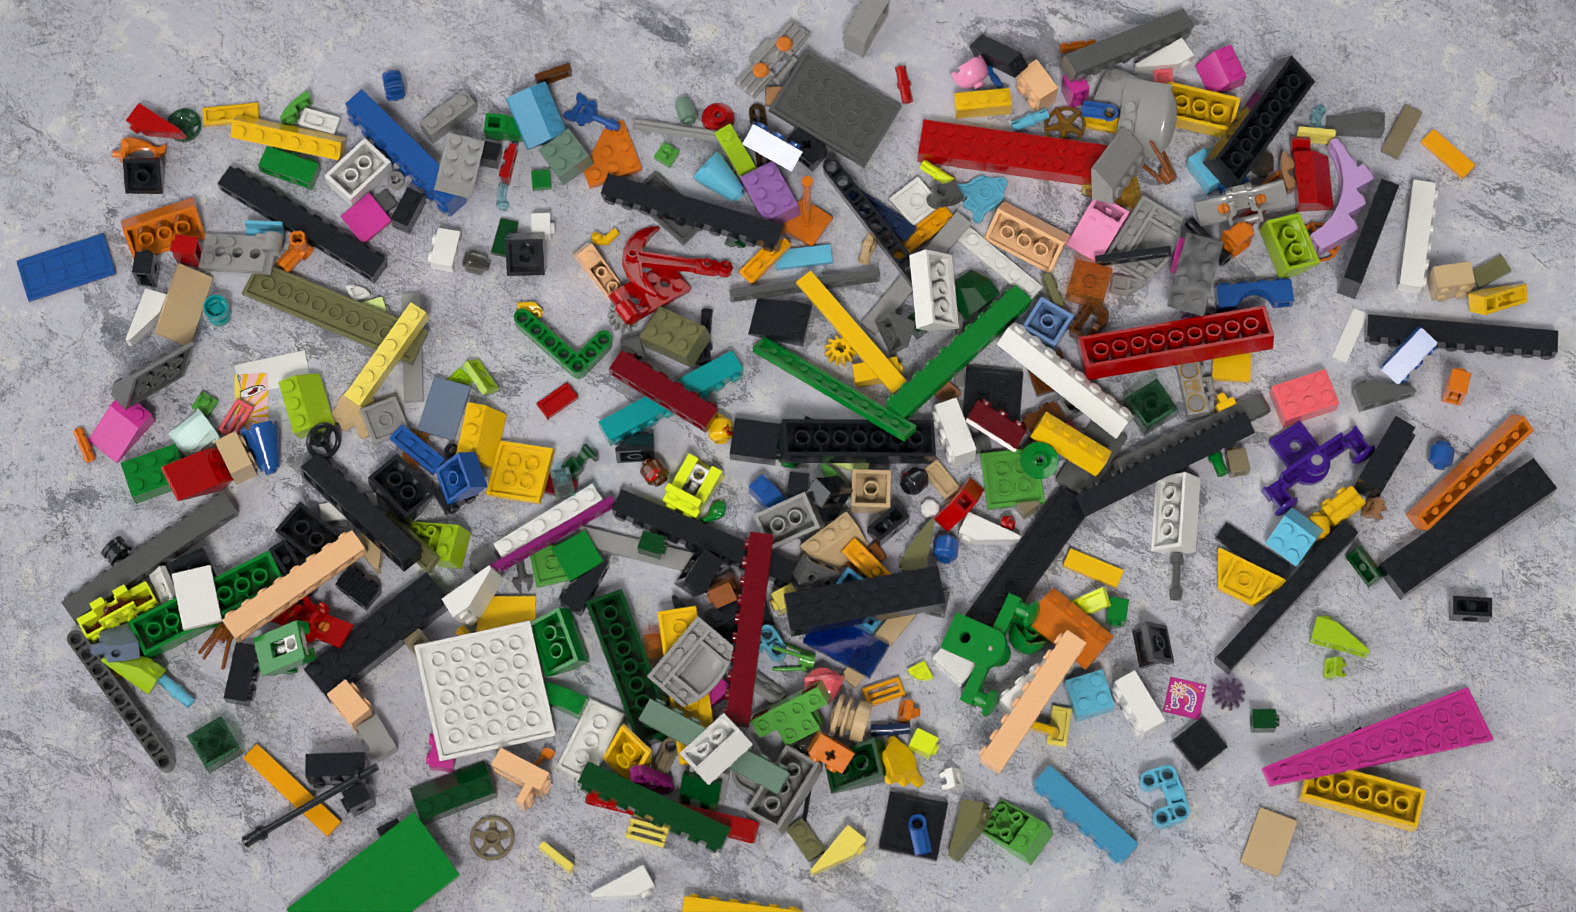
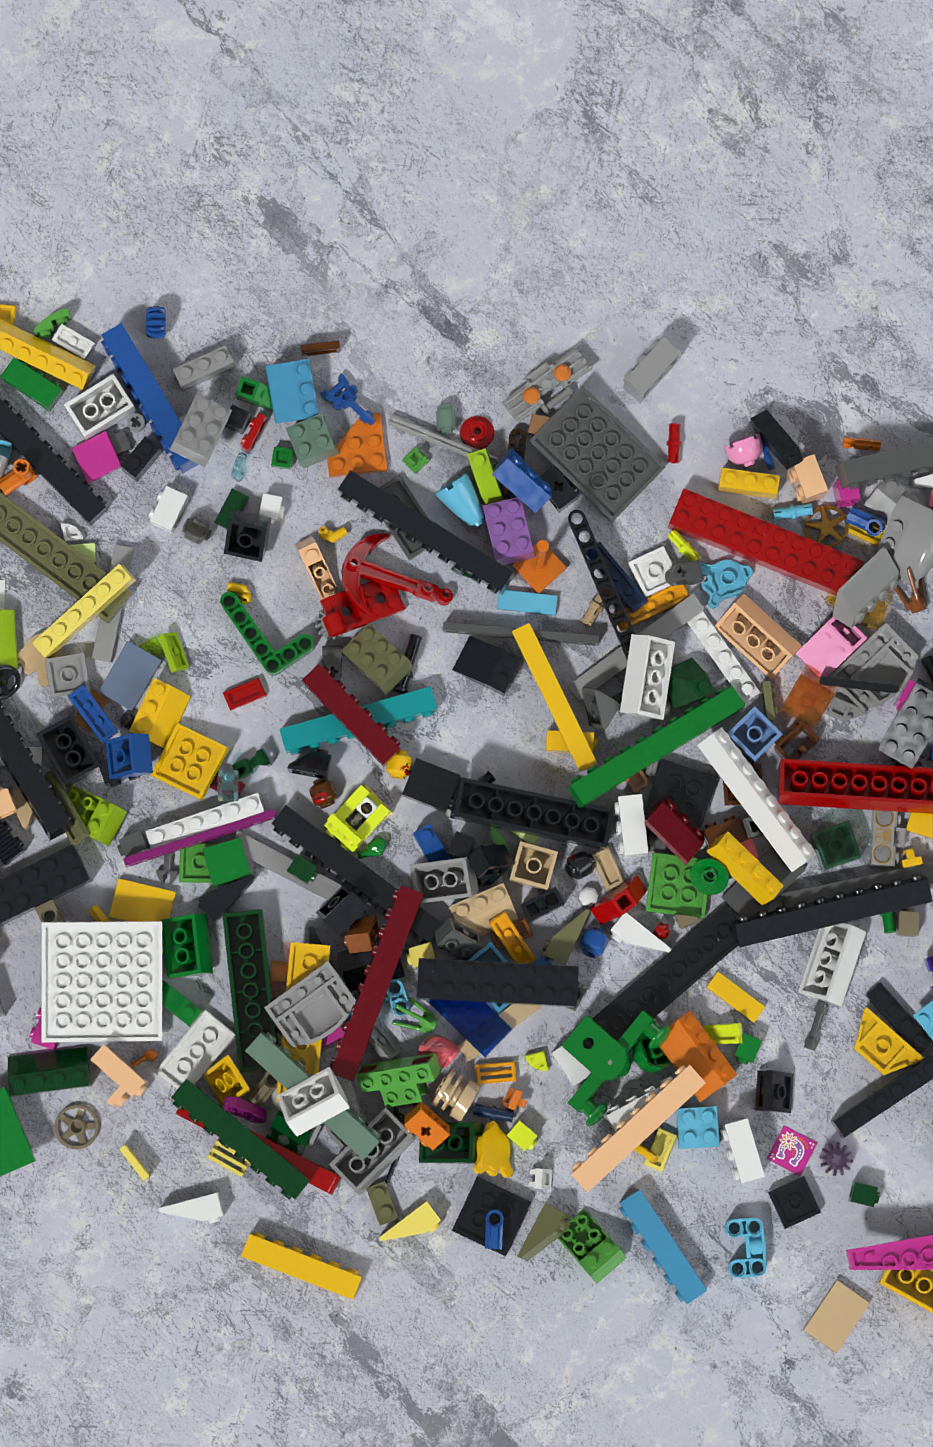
camera: 10 degrees right, 10 degrees up
(472, 597) = (112, 883): white slope -> none
(762, 262) = (483, 599): light orange tile -> none
(834, 389) = (522, 754): green plate -> none
(835, 355) = (534, 715): yellow gear -> none

